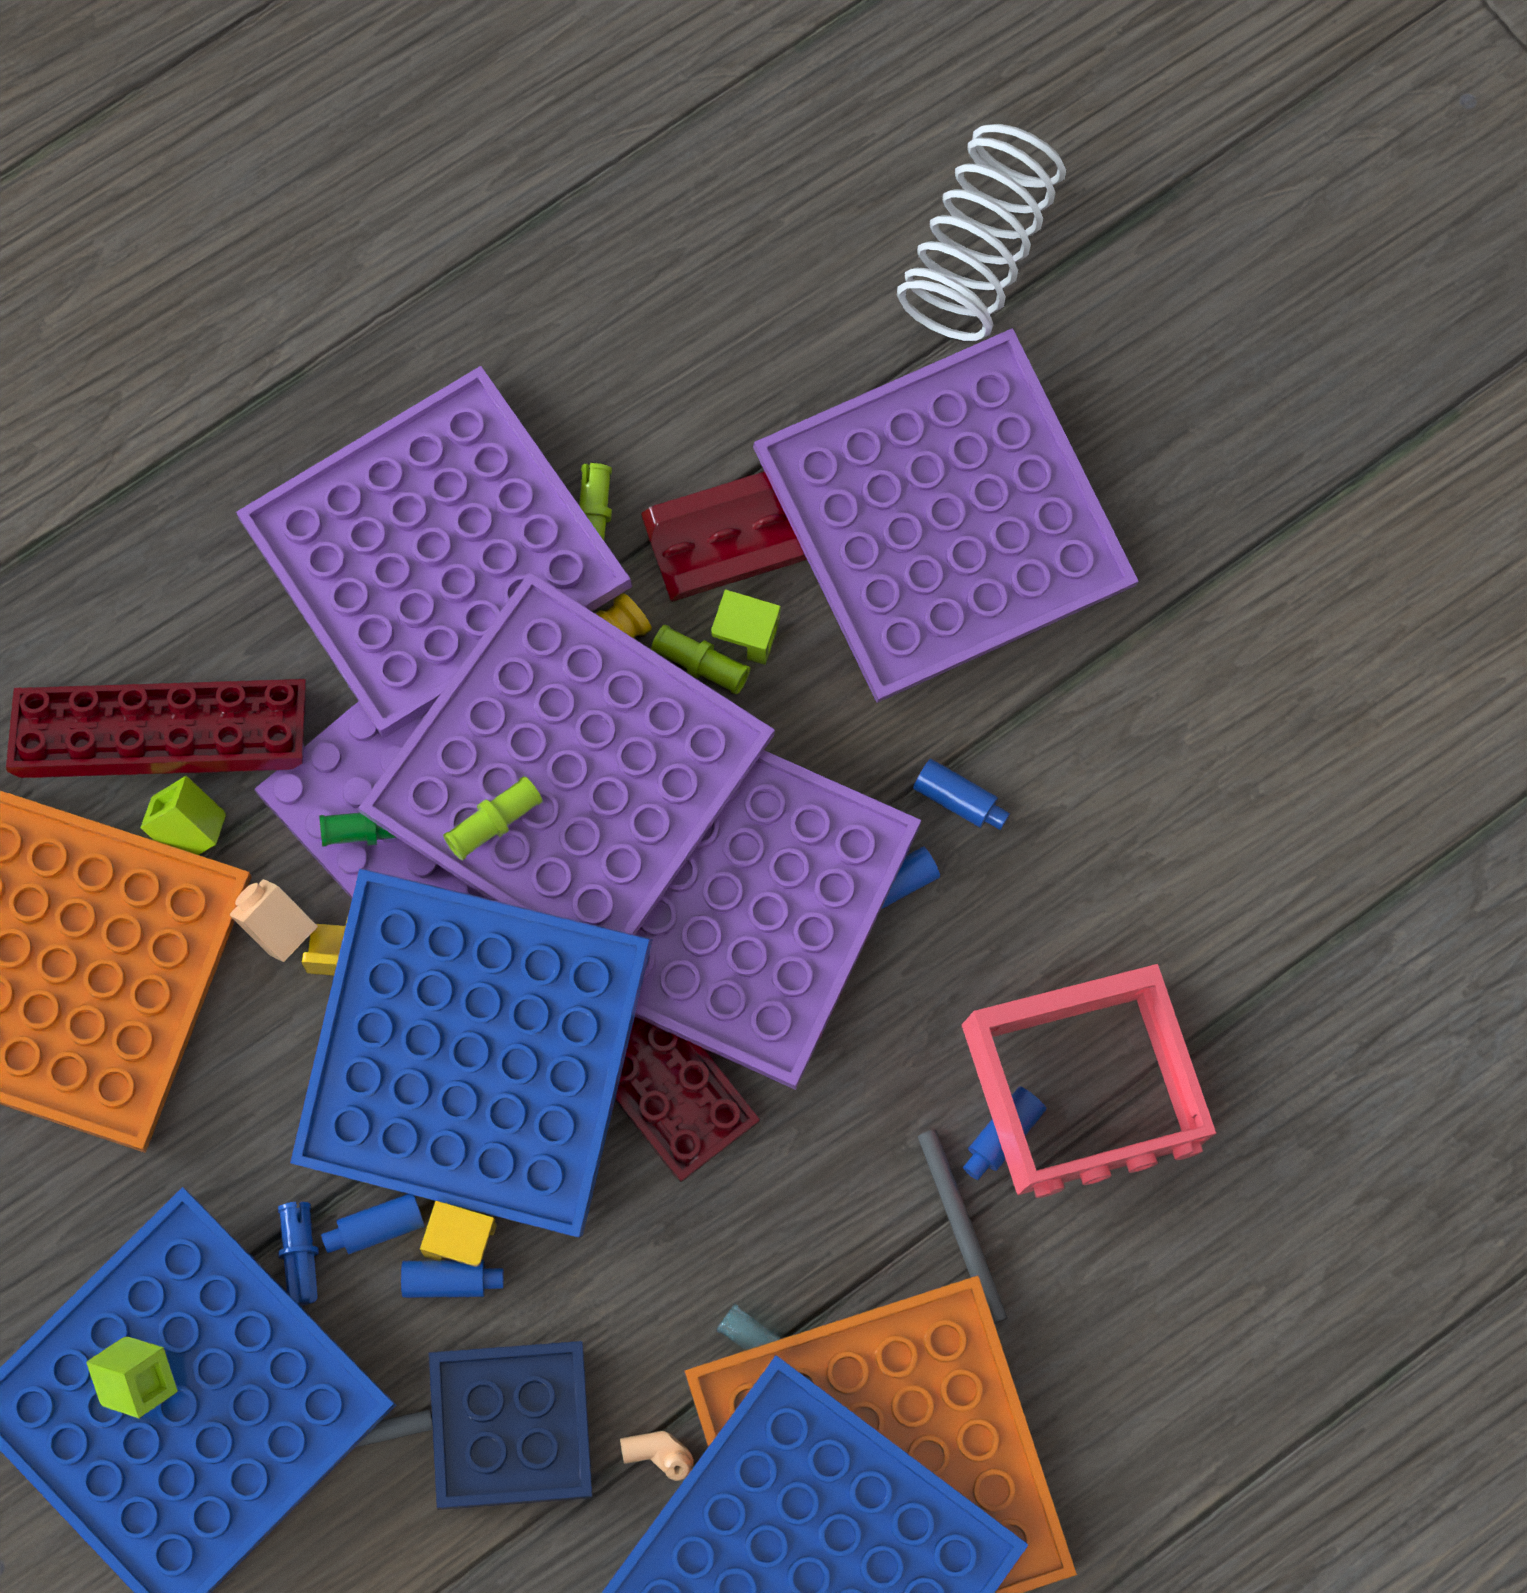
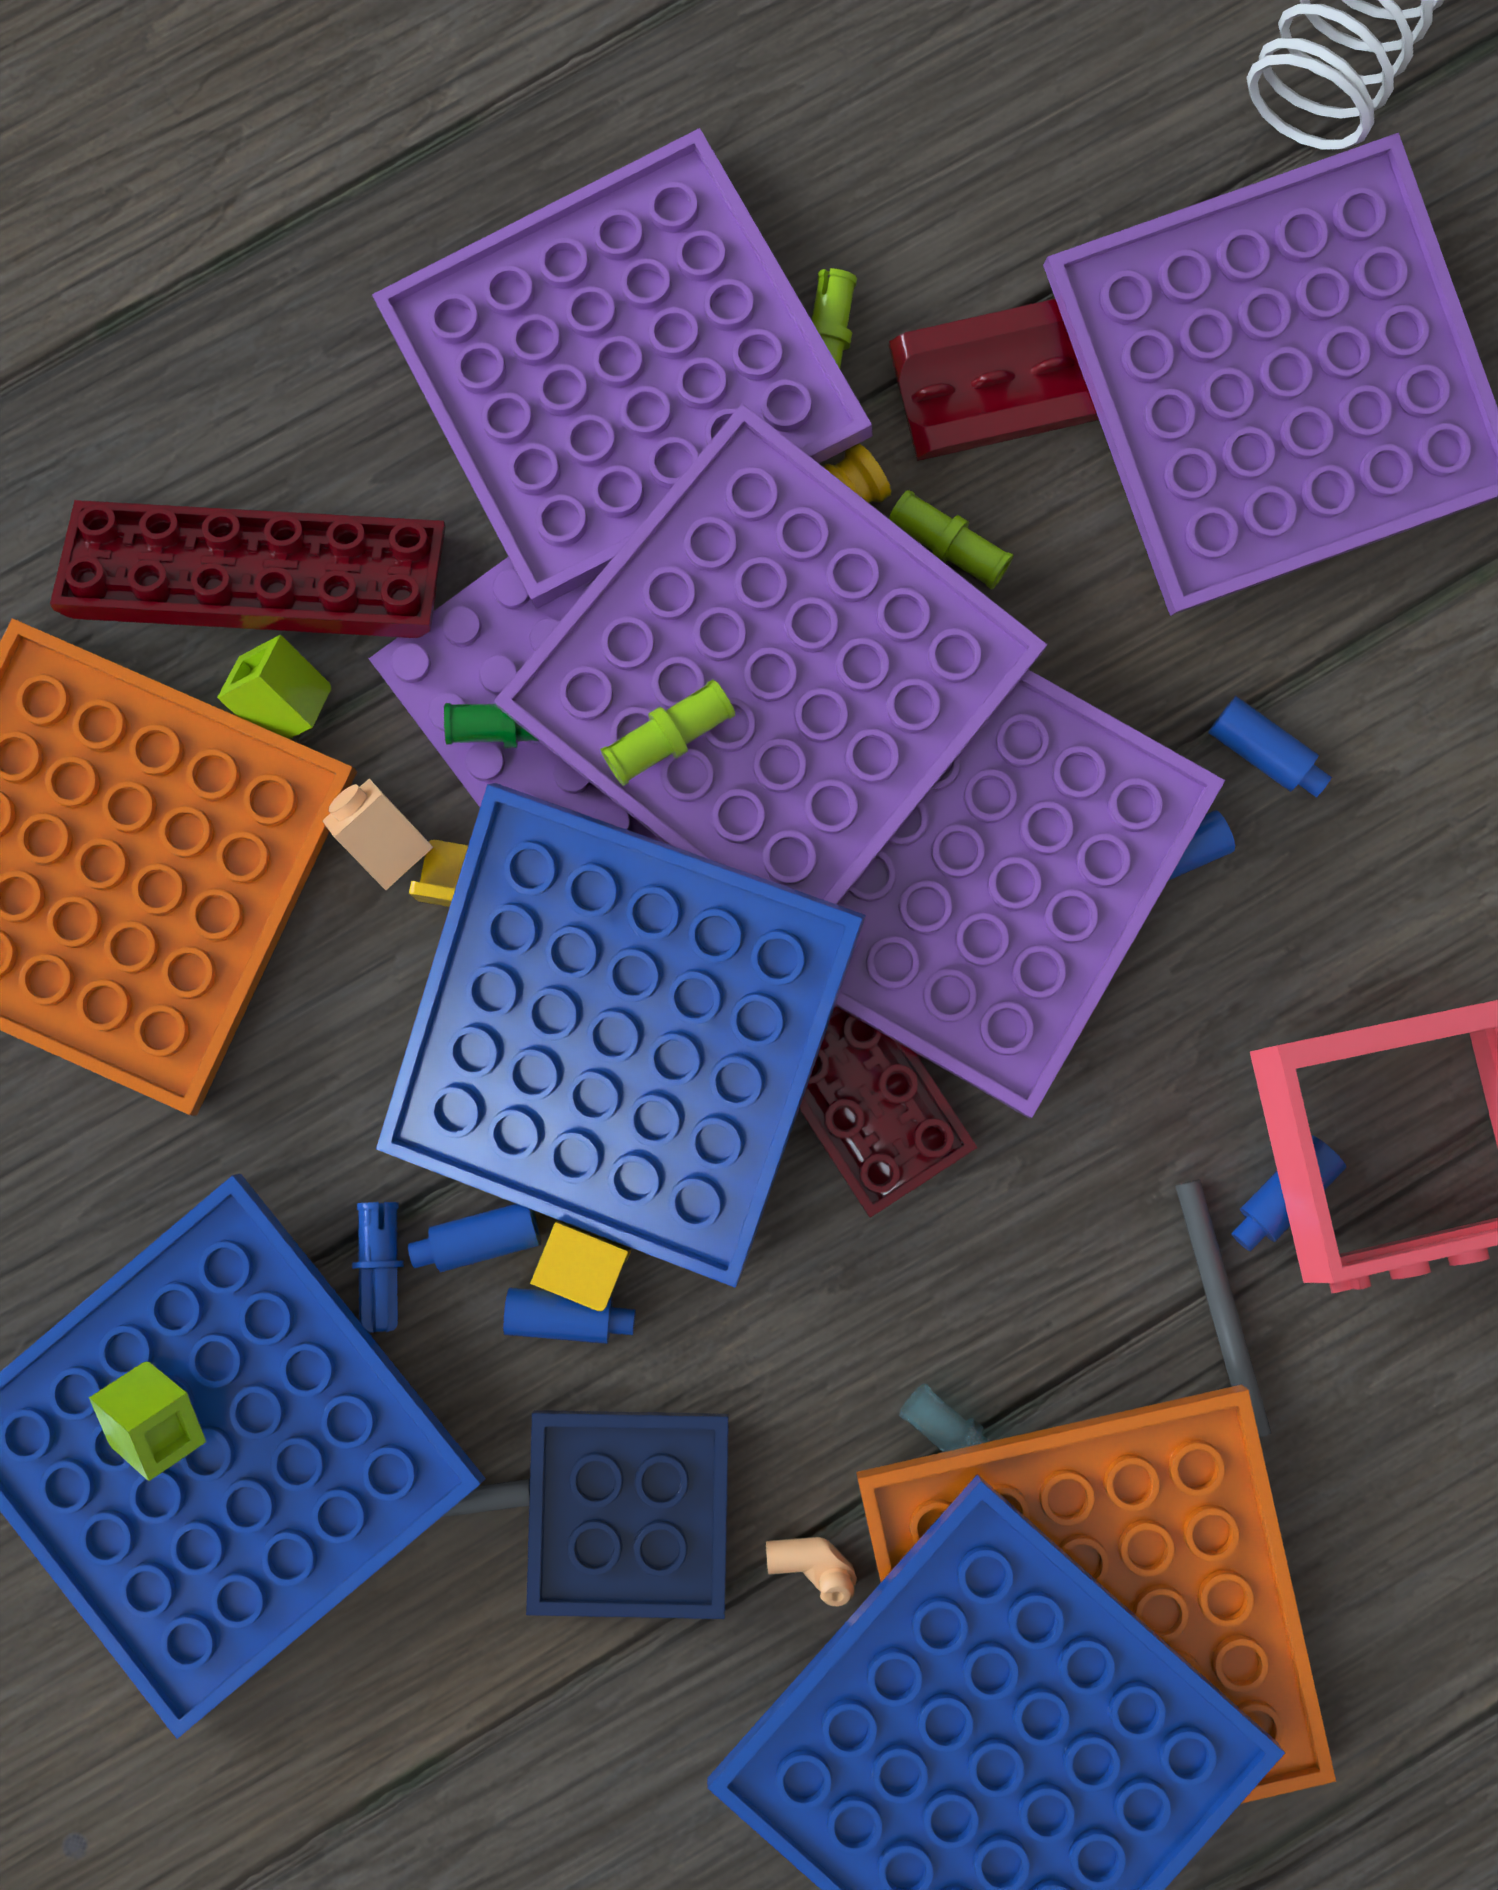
camera: 10 degrees right, 10 degrees up
(748, 624) = (1015, 497): lime panel -> none

